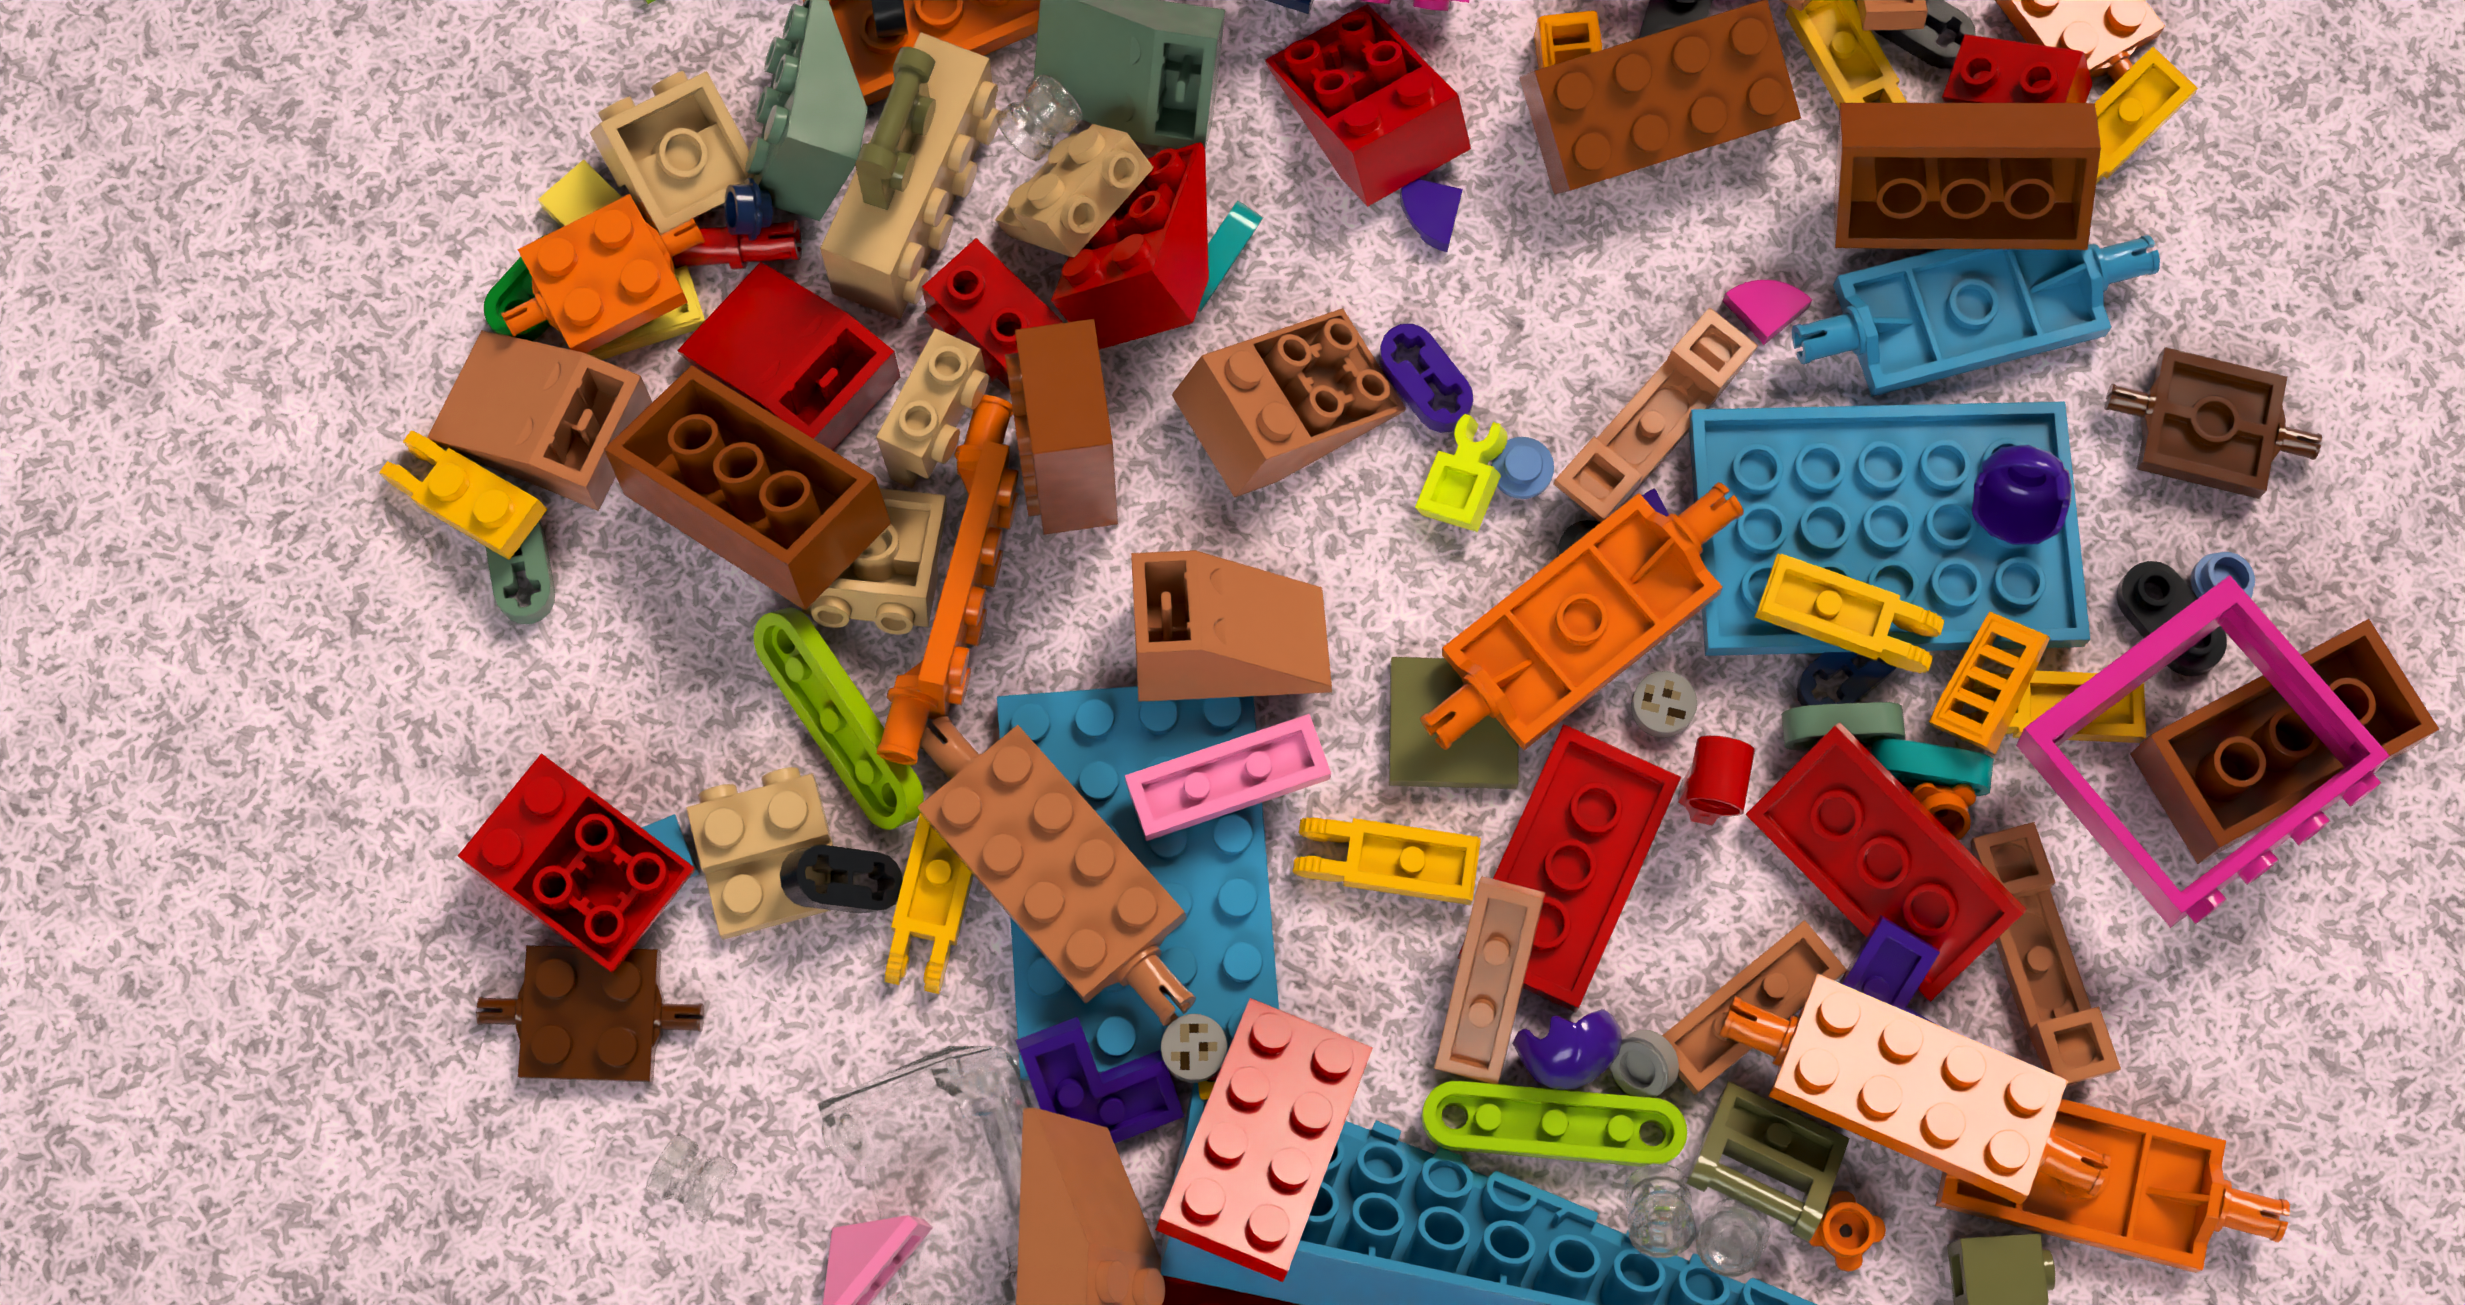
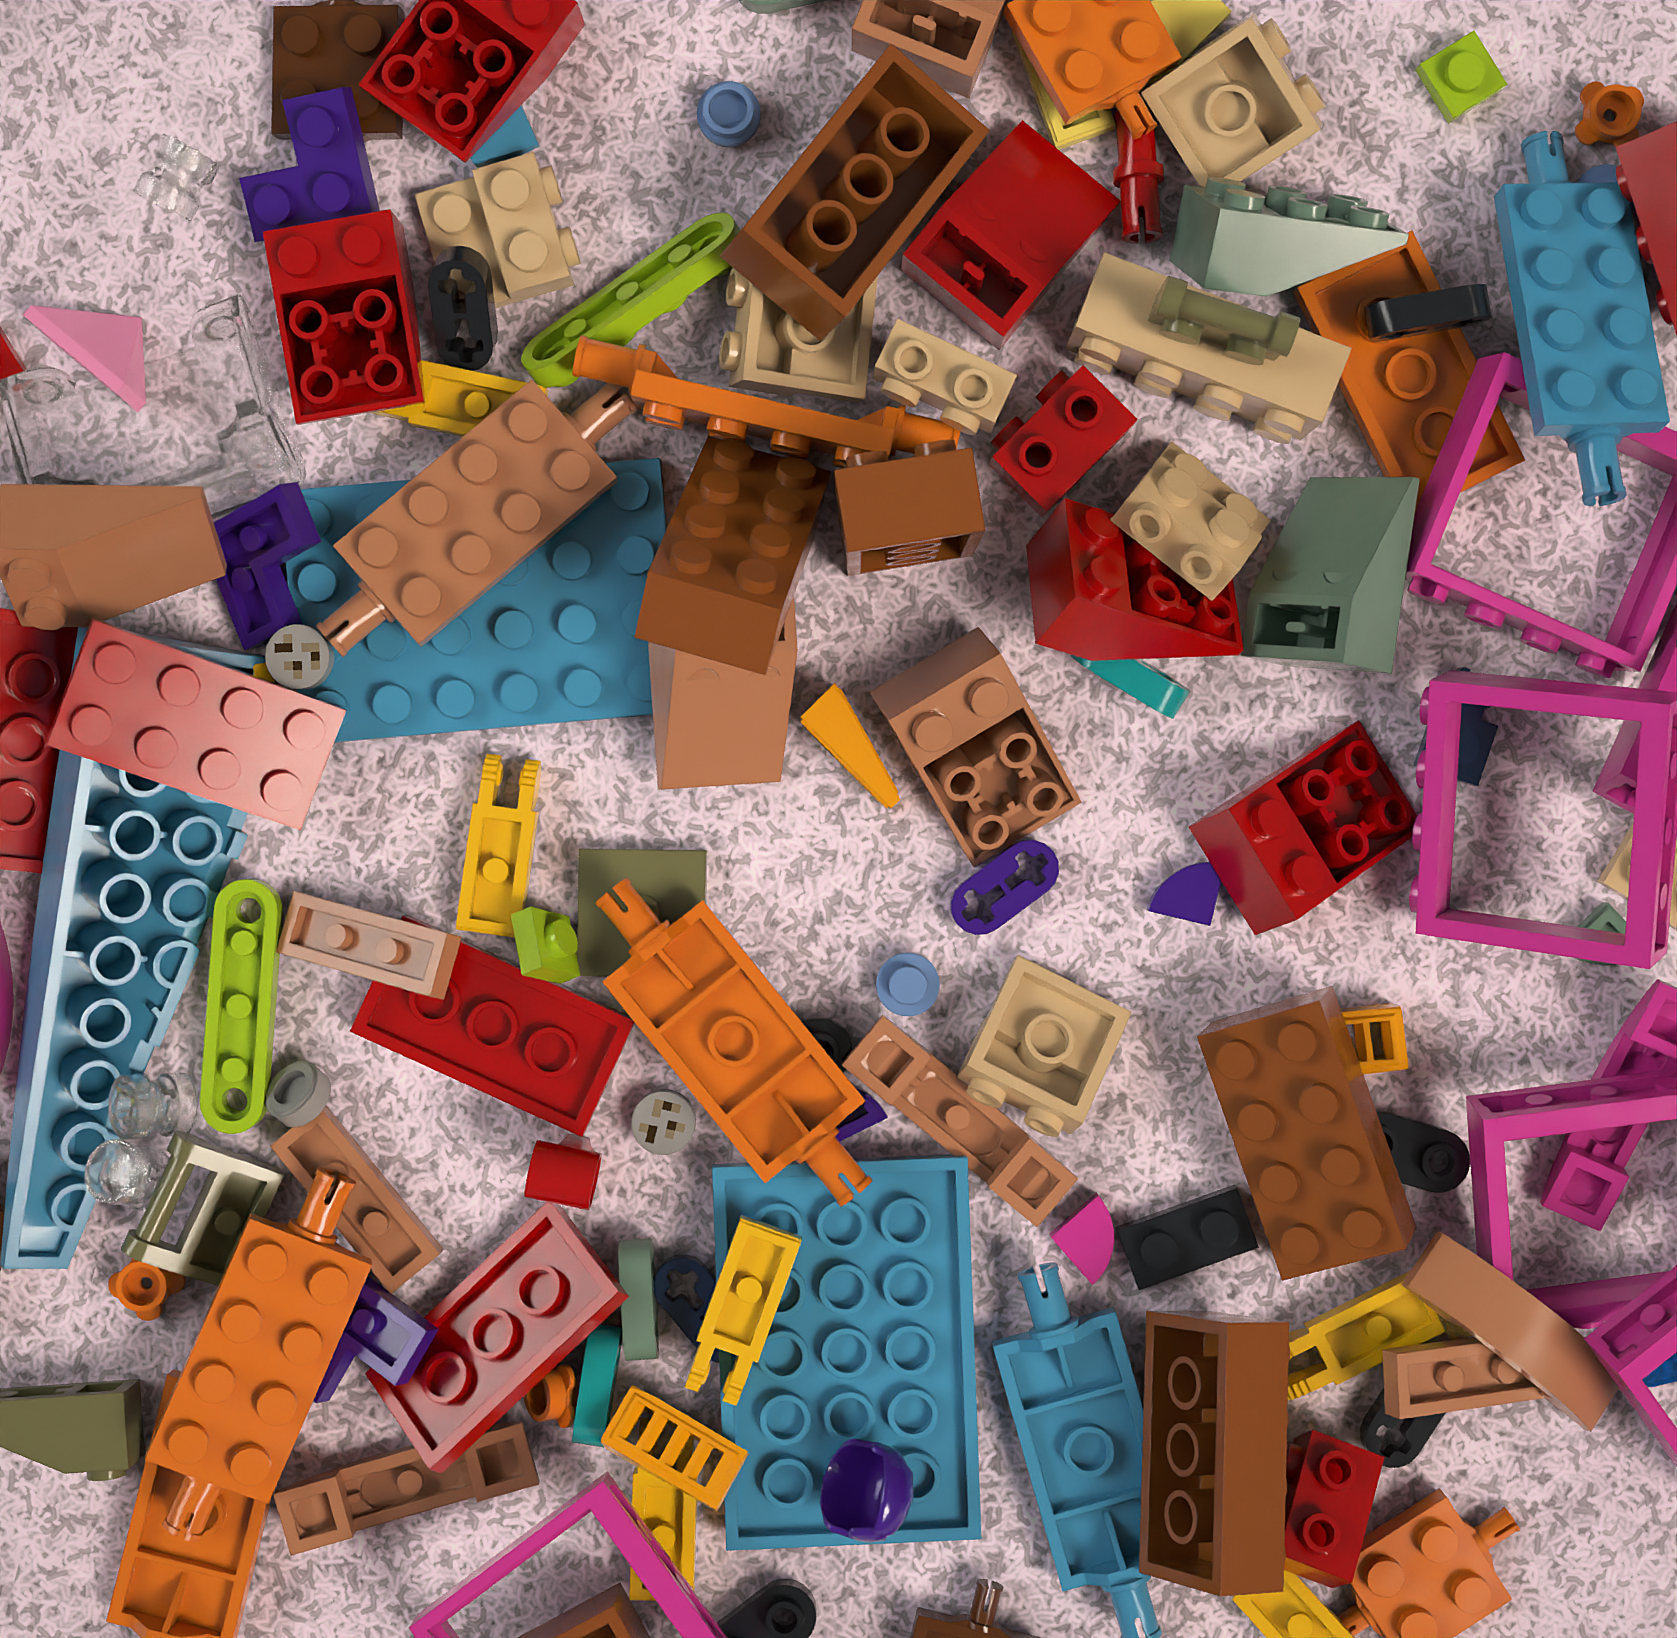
camera: 90 degrees right, 15 degrees up
(654, 627) = (728, 114): none -> medium blue plate
(707, 1016) = (331, 170): none -> dark purple plate
(747, 209) = (1166, 181): dark blue plate -> none
(846, 995) = (346, 315): none -> red slope
(1039, 117) = (1283, 489): clear wheel -> none
(1103, 591) = (733, 555): none -> dark orange brick
(1227, 777) = (565, 686): bright pink plate -> none
(1279, 521) = (842, 735): none -> light orange slope
(1463, 483) = (886, 919): neon yellow plate -> none
(1487, 806) = (545, 945): none -> lime plate
(1571, 1051) = (300, 1018): dark purple hair -> none
(1584, 339) = (1043, 1048): none -> tan plate
(1763, 217) = (1187, 1237): none -> black plate

